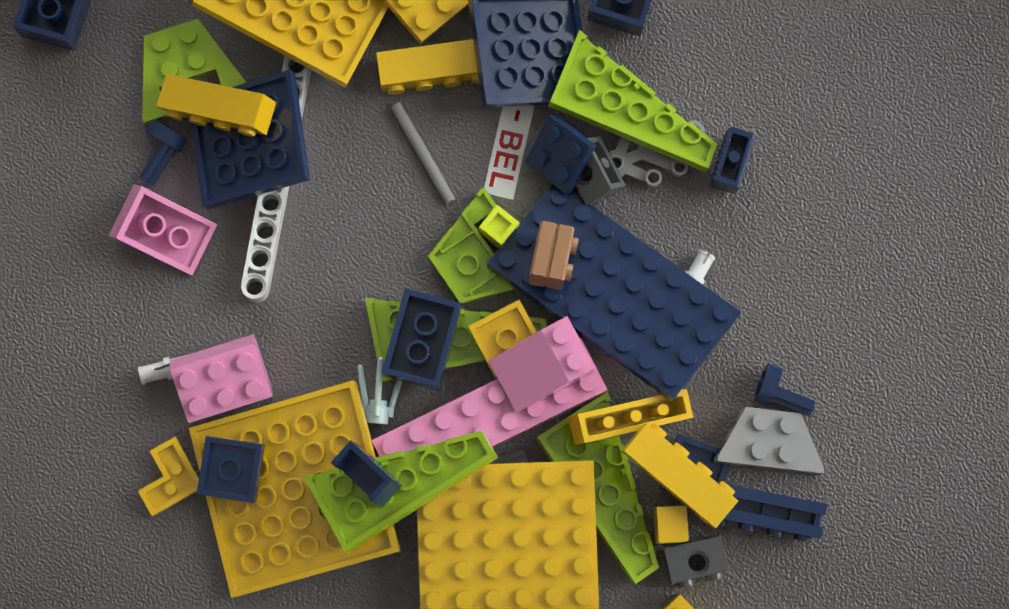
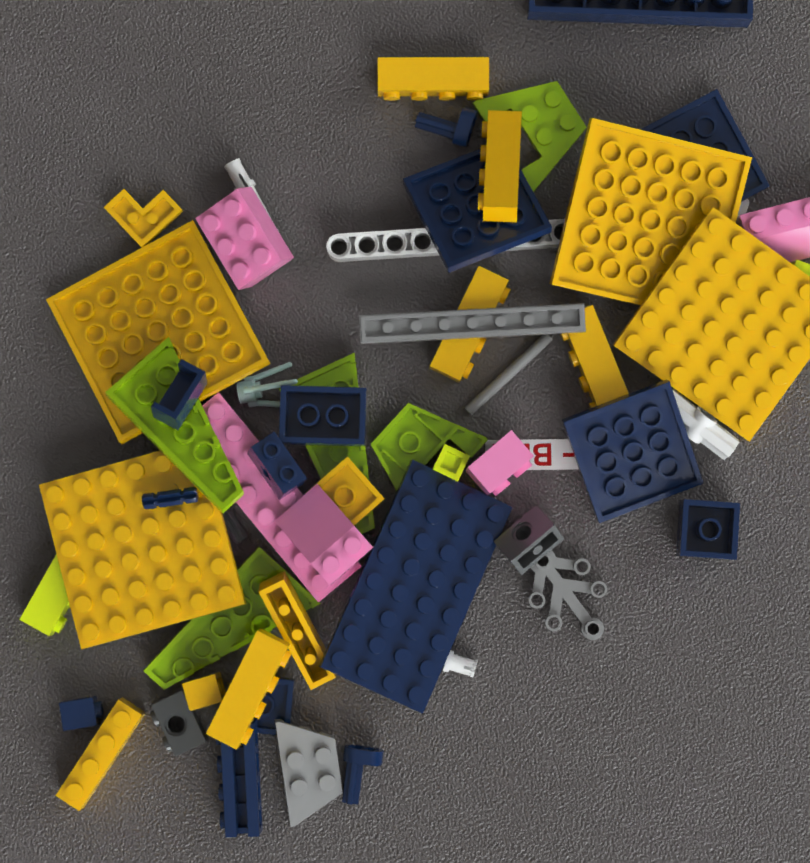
camera: 85 degrees right, 5 degrees up
(107, 155) = (433, 77): none -> yellow brick
(162, 229) = (373, 147): bright pink slope -> none
(230, 469) = (161, 268): dark blue plate -> none
(365, 173) = (472, 323): none -> light grey tile
(365, 178) = (455, 354): none -> yellow brick
(461, 395) = (276, 465): none -> dark blue brick
(469, 510) = (170, 498): none -> dark blue axle
(511, 176) = (499, 462): none -> bright pink brick
(552, 255) = (431, 519): medium nougat brick -> none
(560, 153) = (536, 504): dark blue plate -> none
(620, 103) = (600, 549): lime wing -> none
(732, 160) = (571, 672): dark blue brick -> none

